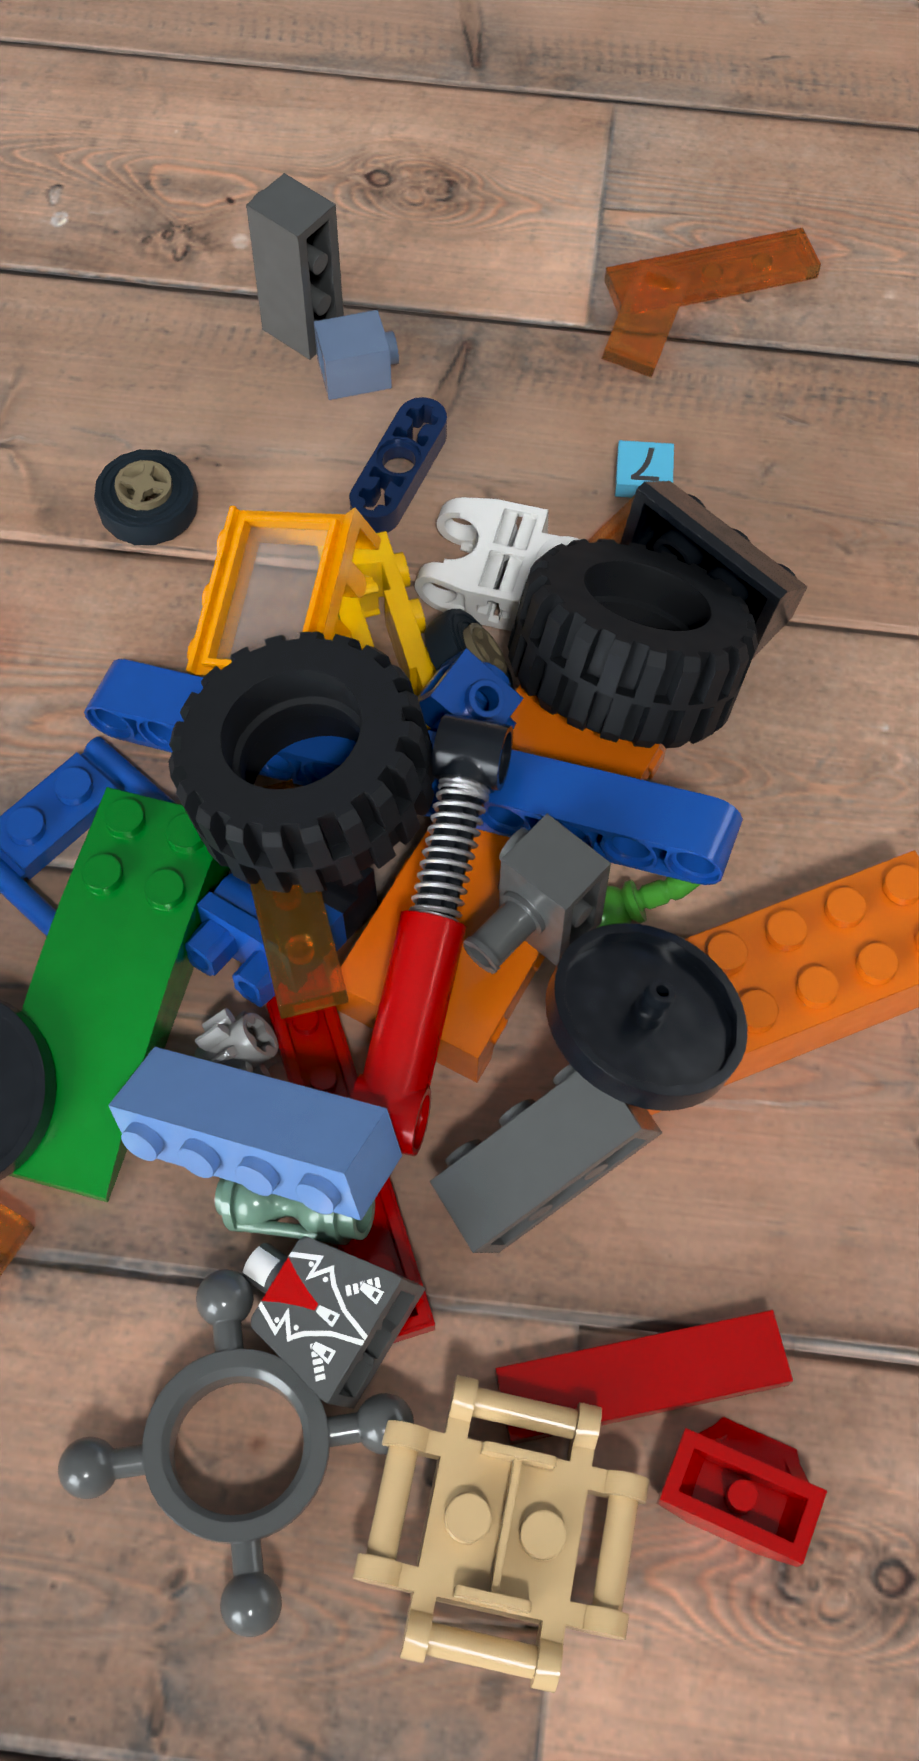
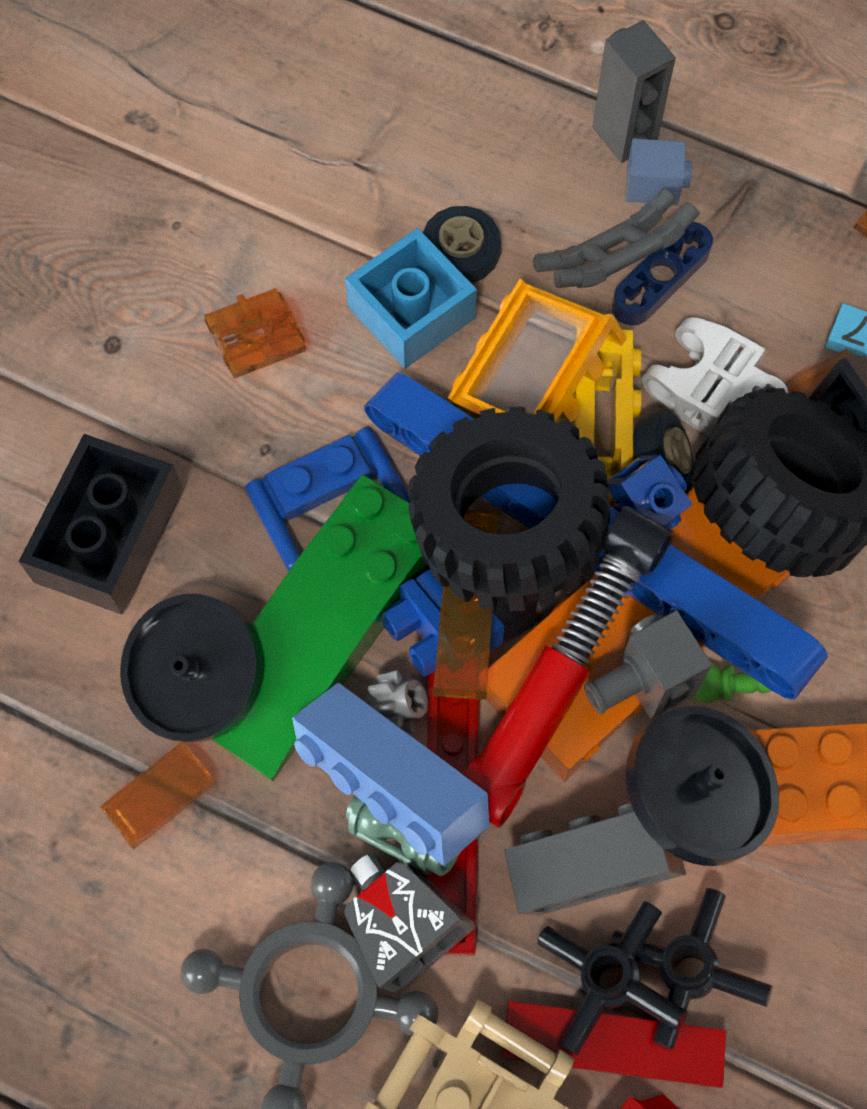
camera: 20 degrees right, 5 degrees up
(103, 570) = (411, 298): none -> dark azure brick
(311, 471) = (570, 265): none -> dark grey piece
(630, 1311) = (627, 991): none -> black bar
(707, 1274) = (712, 976): none -> black bar

